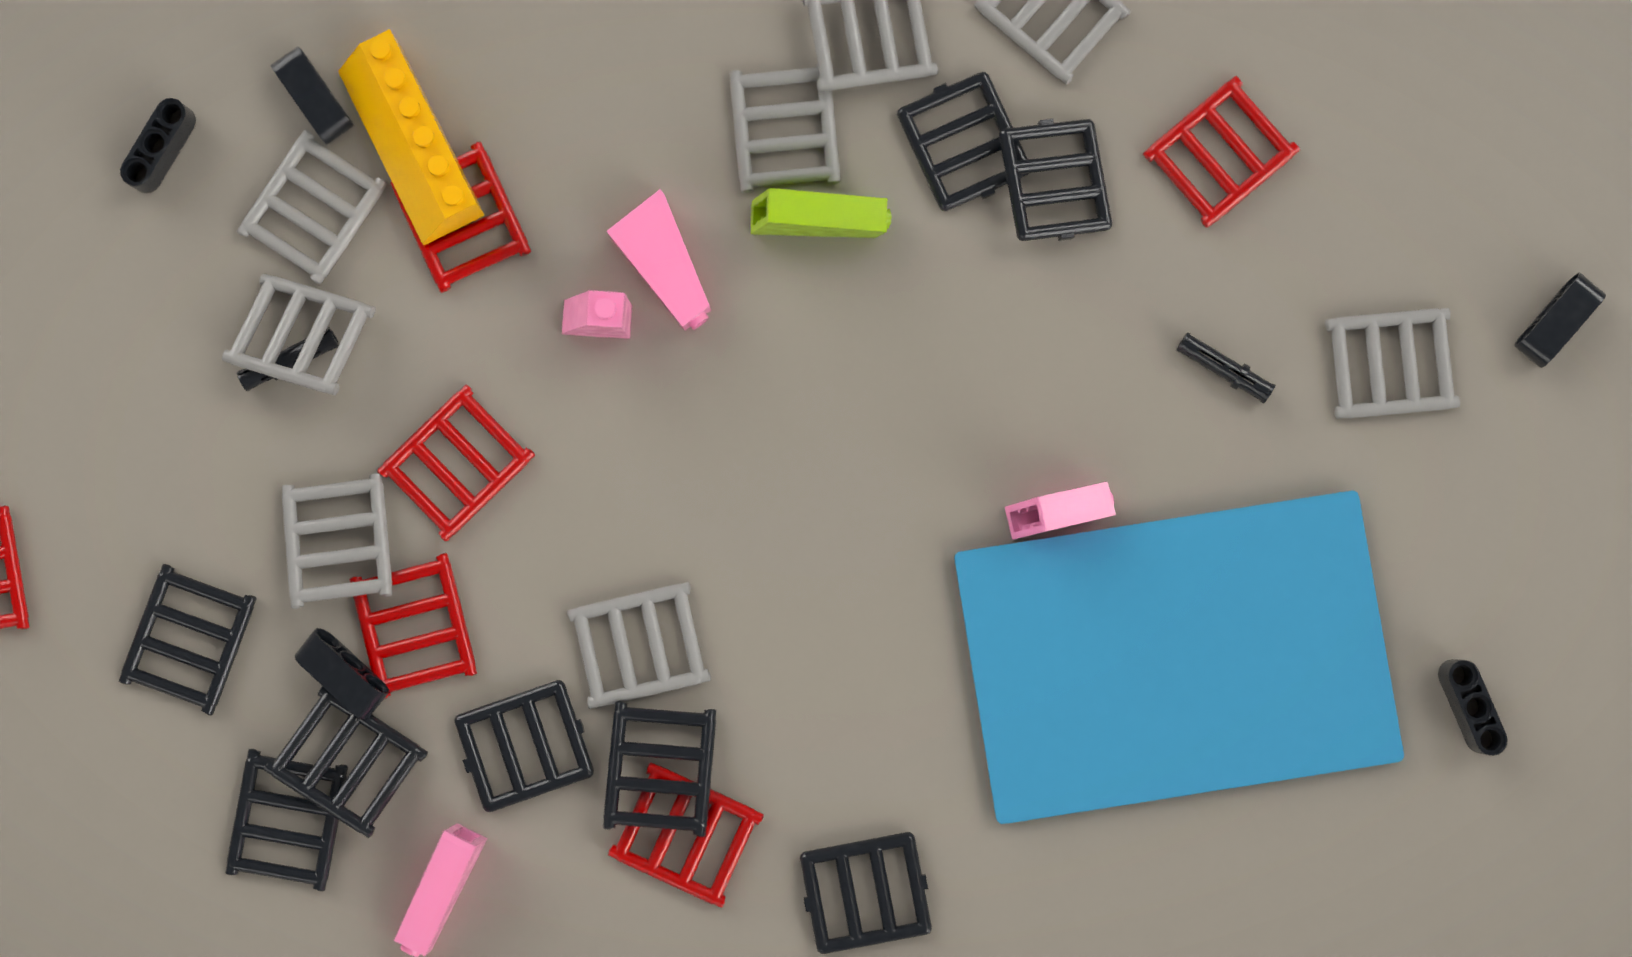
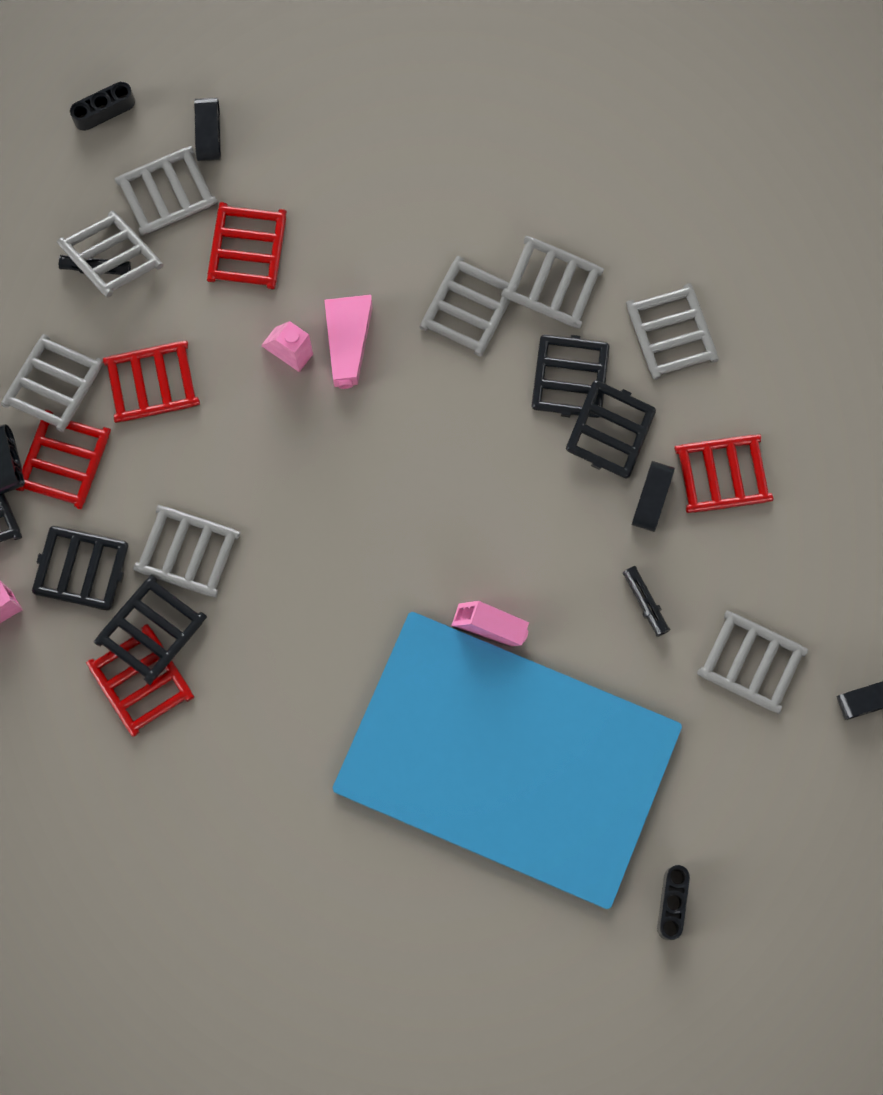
camera: 30 degrees right, 10 degrees down
(409, 138) = (246, 183): yellow slope -> none
(818, 214) = (456, 365): lime slope -> none
(856, 936) = (224, 815): black bar -> none
(1156, 233) = (653, 496): none -> black beam

